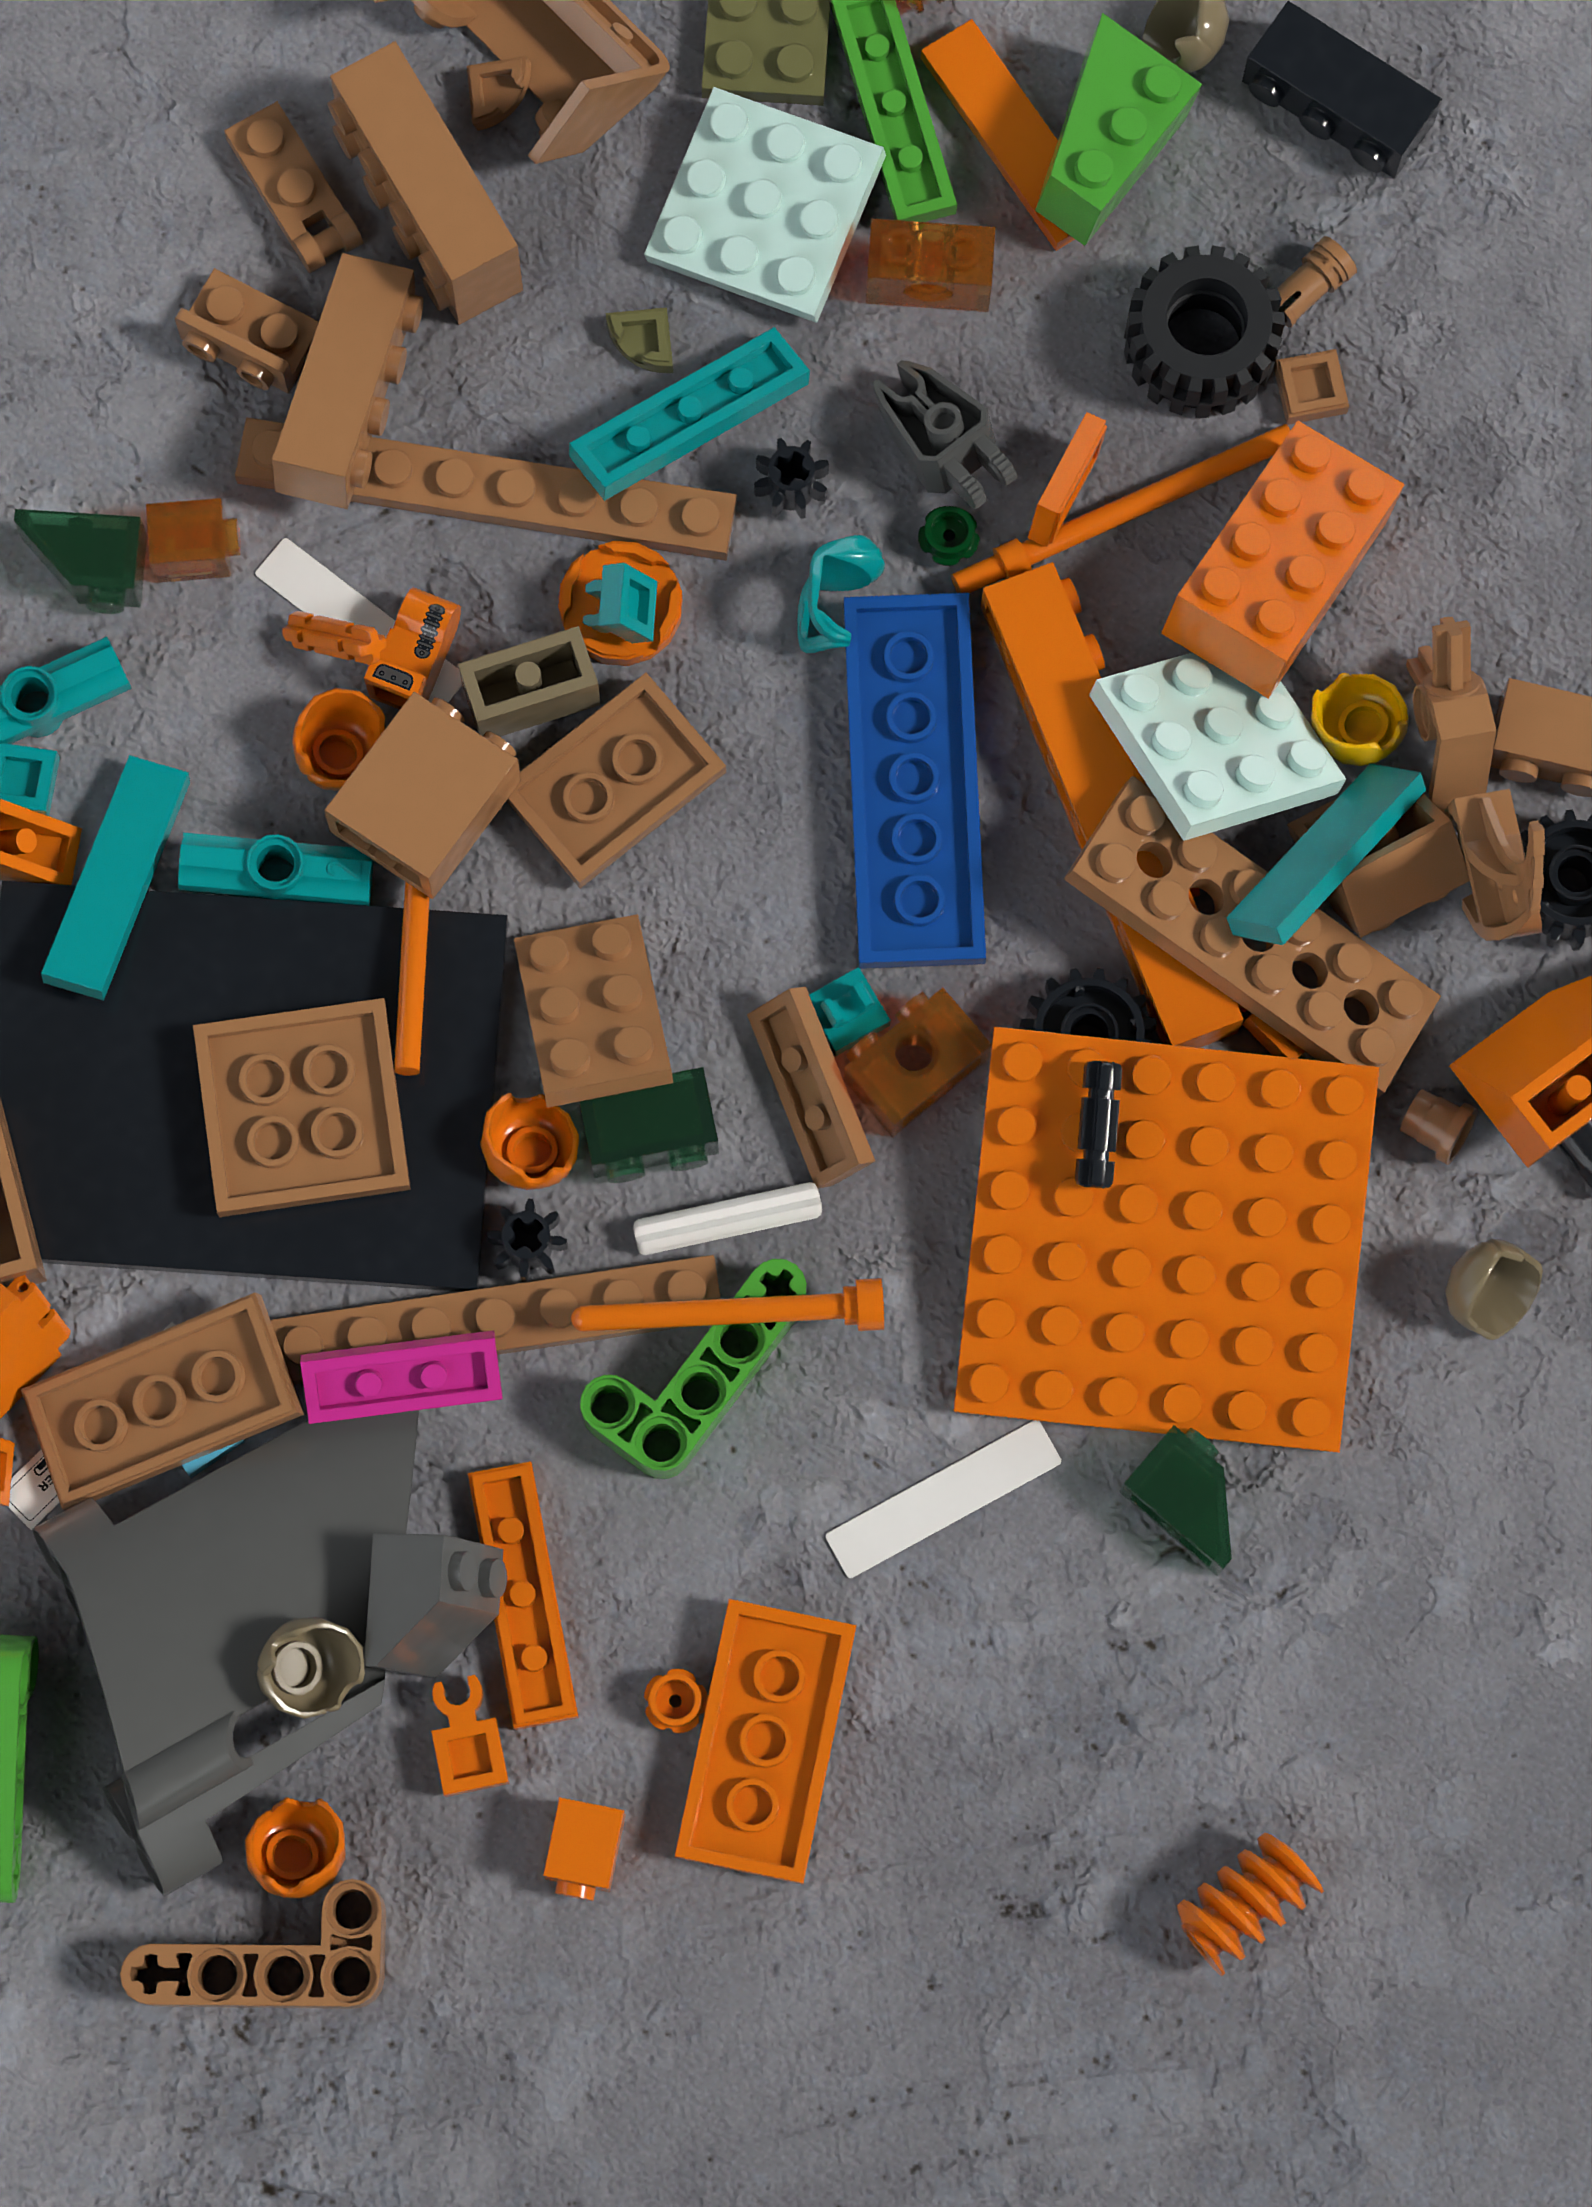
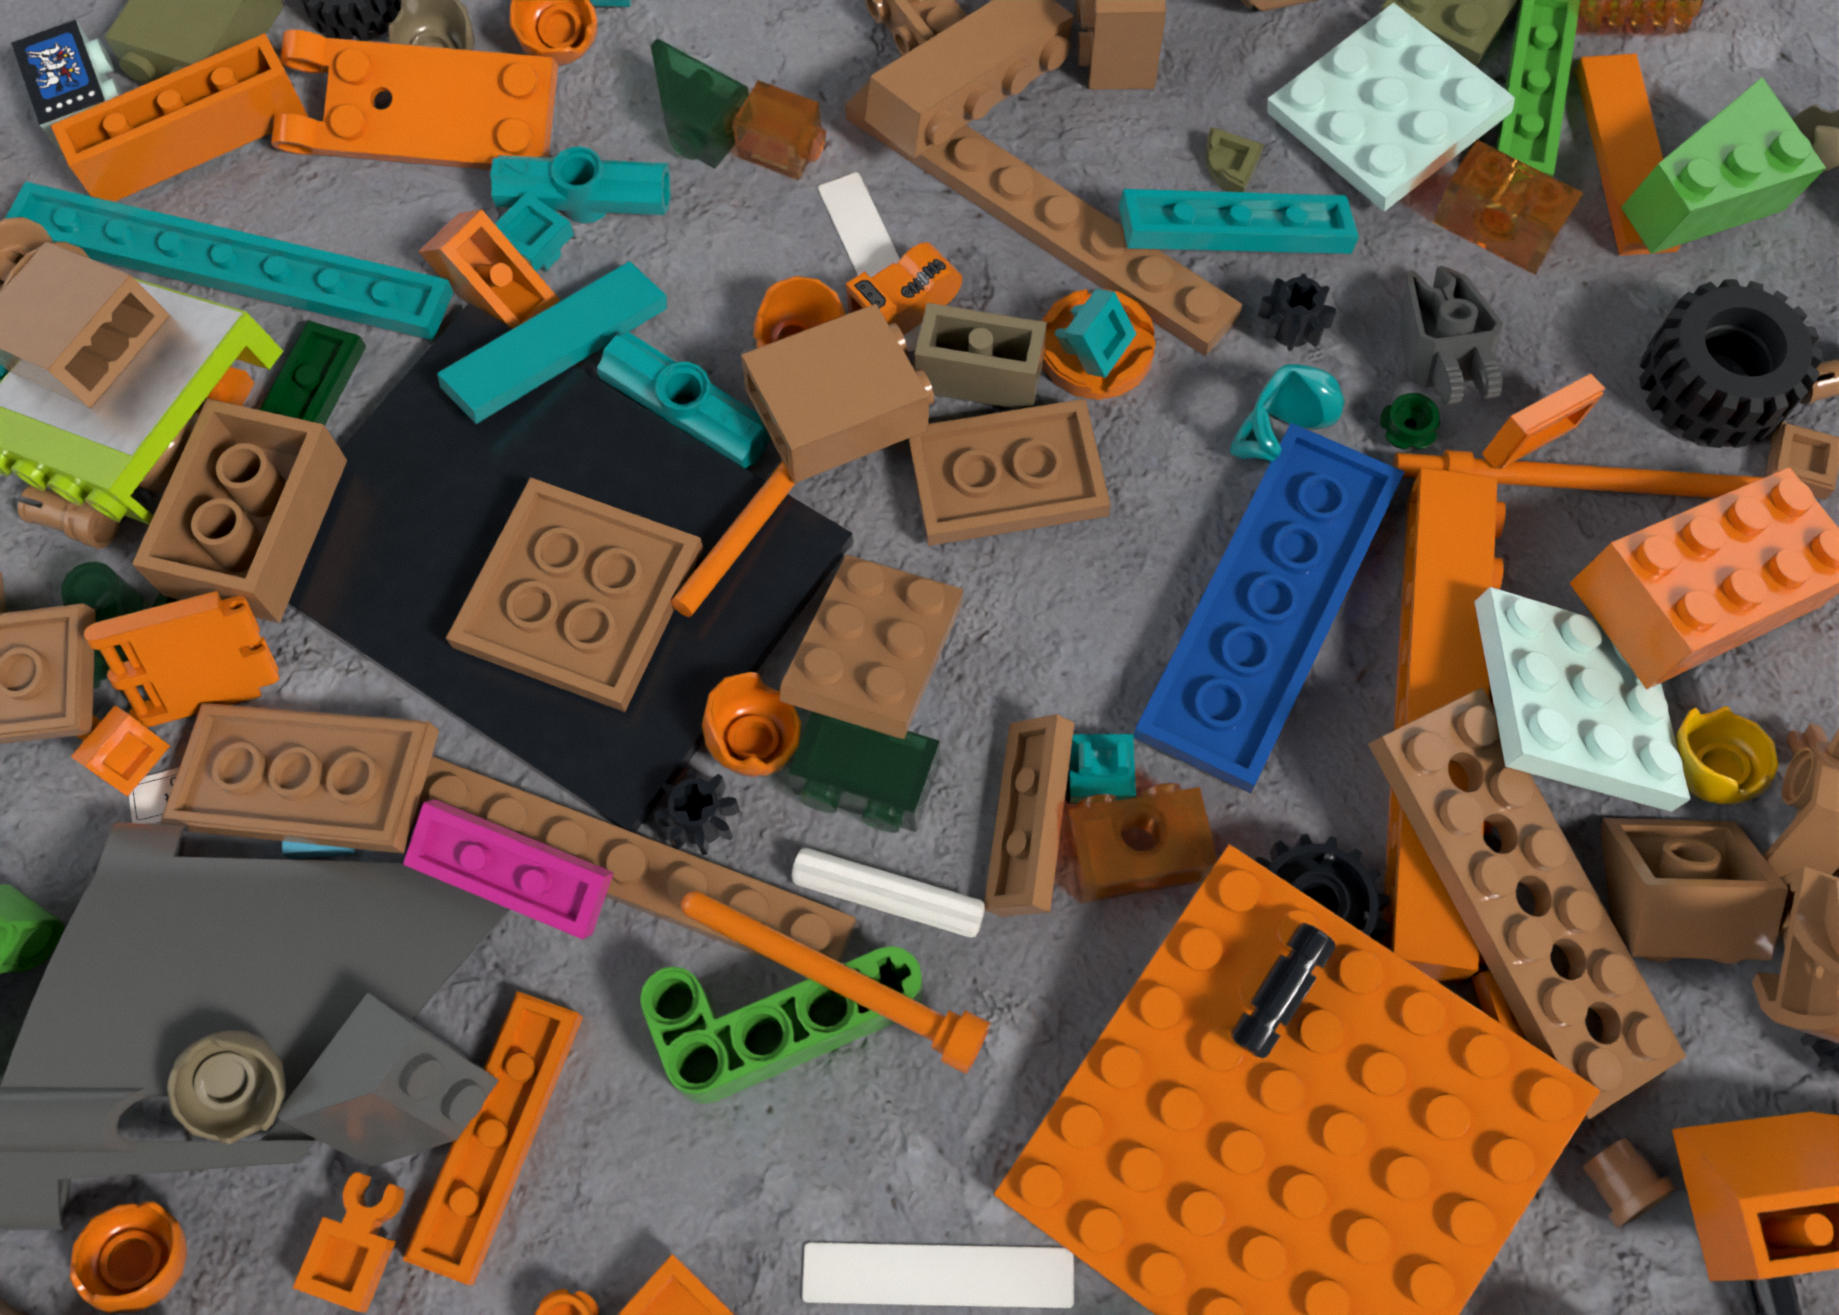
camera: 35 degrees right, 10 degrees down
(334, 637) = (844, 248): orange axle -> none
(1326, 854) = (1638, 856): teal tile -> none

